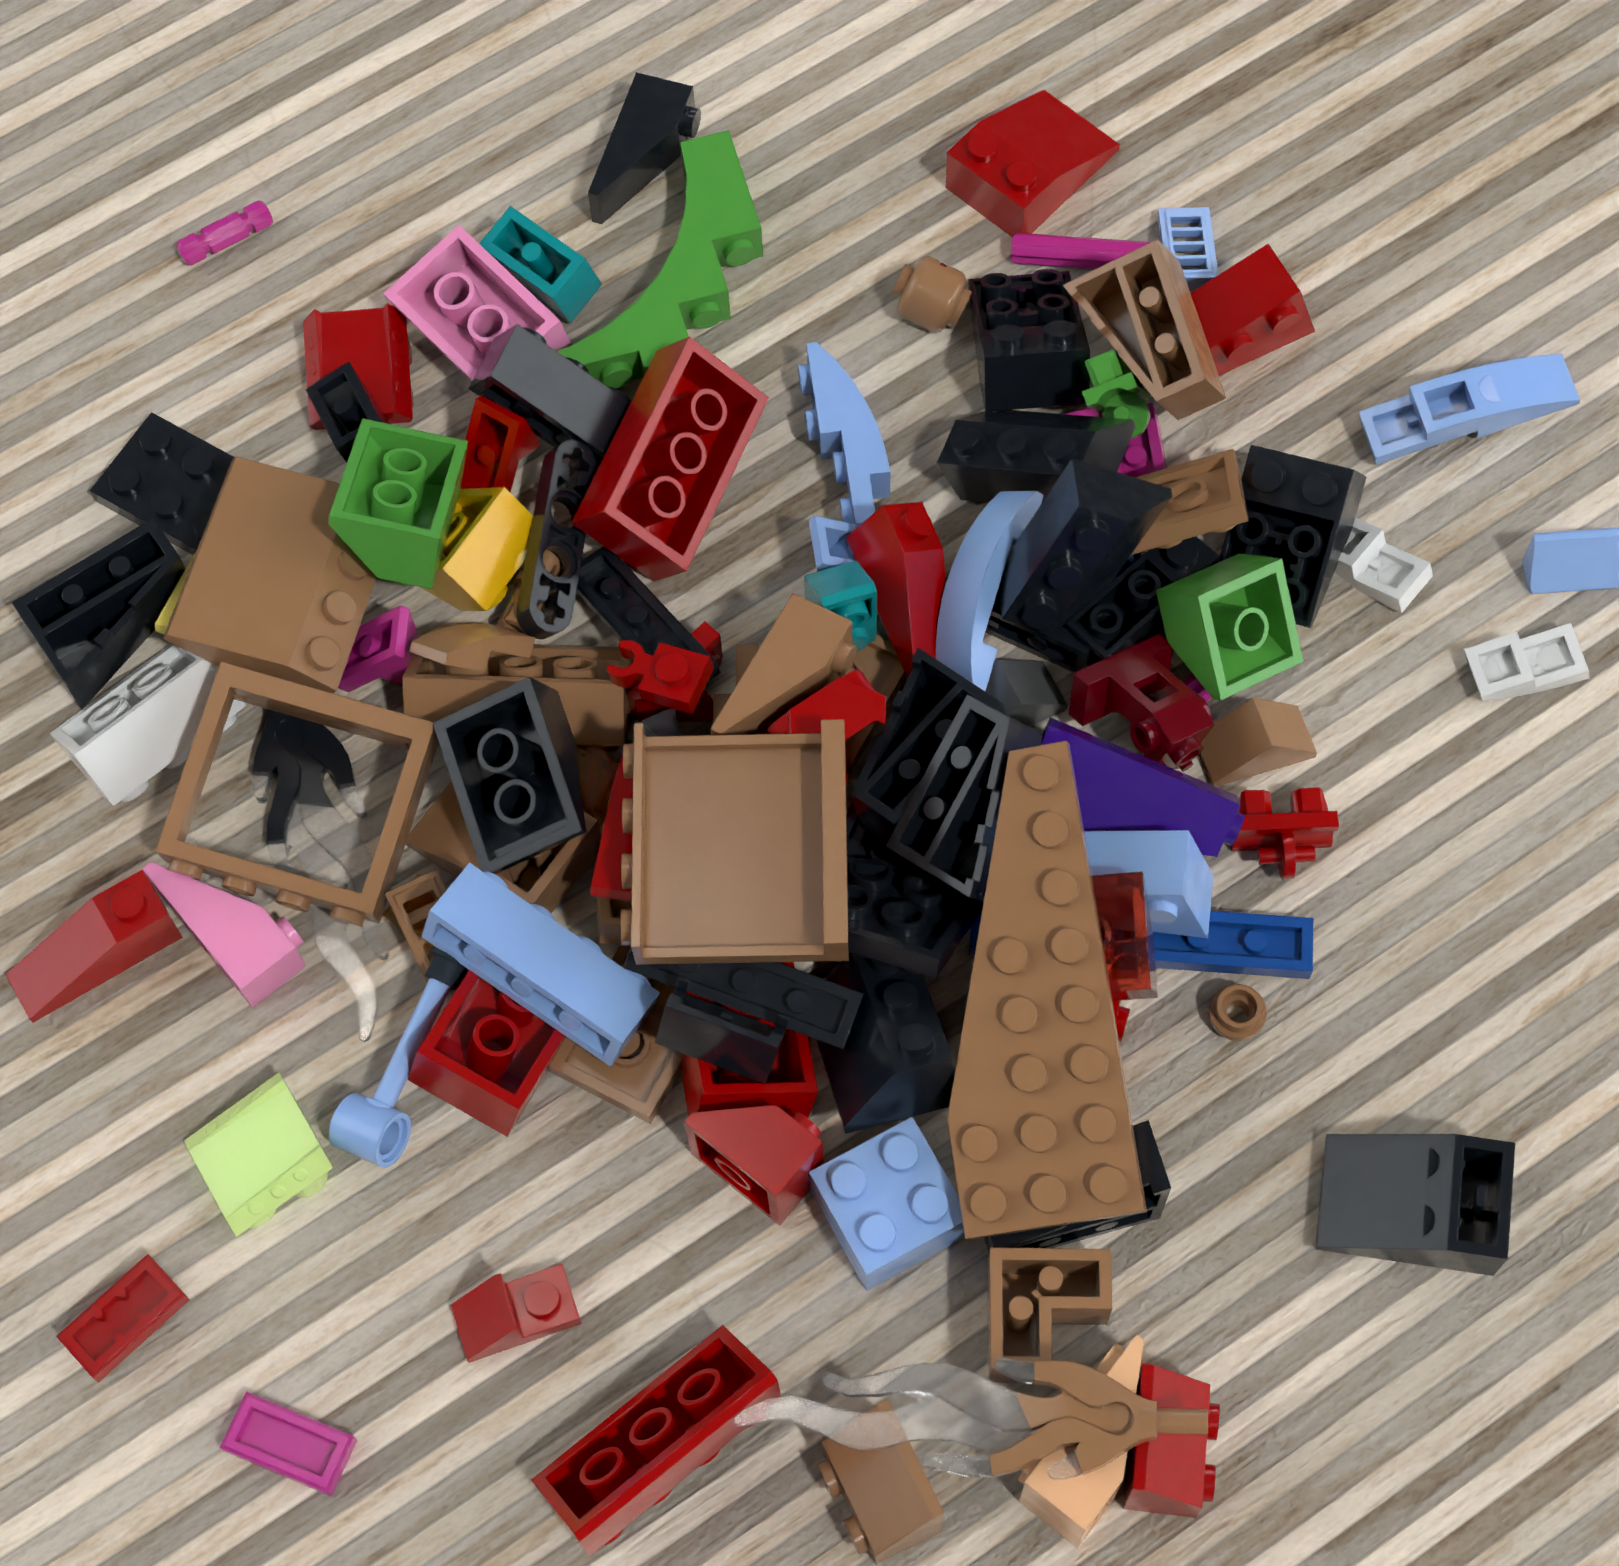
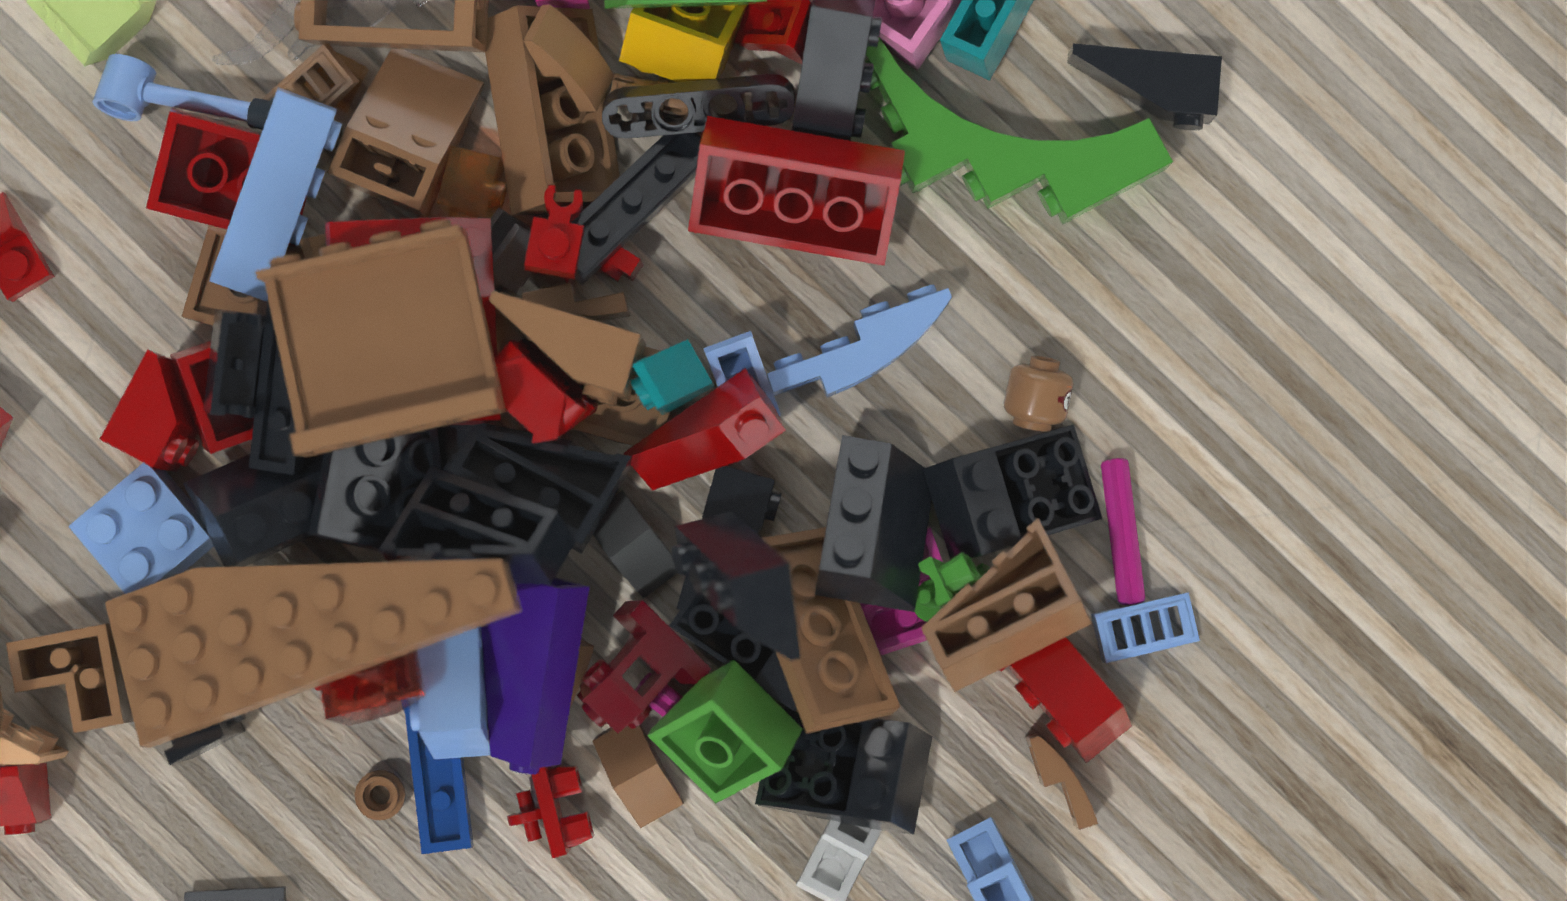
camera: 80 degrees right, 20 degrees up
(514, 773) = (437, 130): black slope -> none
(975, 582) = (716, 493): light blue slope -> none
(1026, 162) = (1217, 459): red slope -> none
(1314, 349) = (1052, 770): none -> medium nougat slope

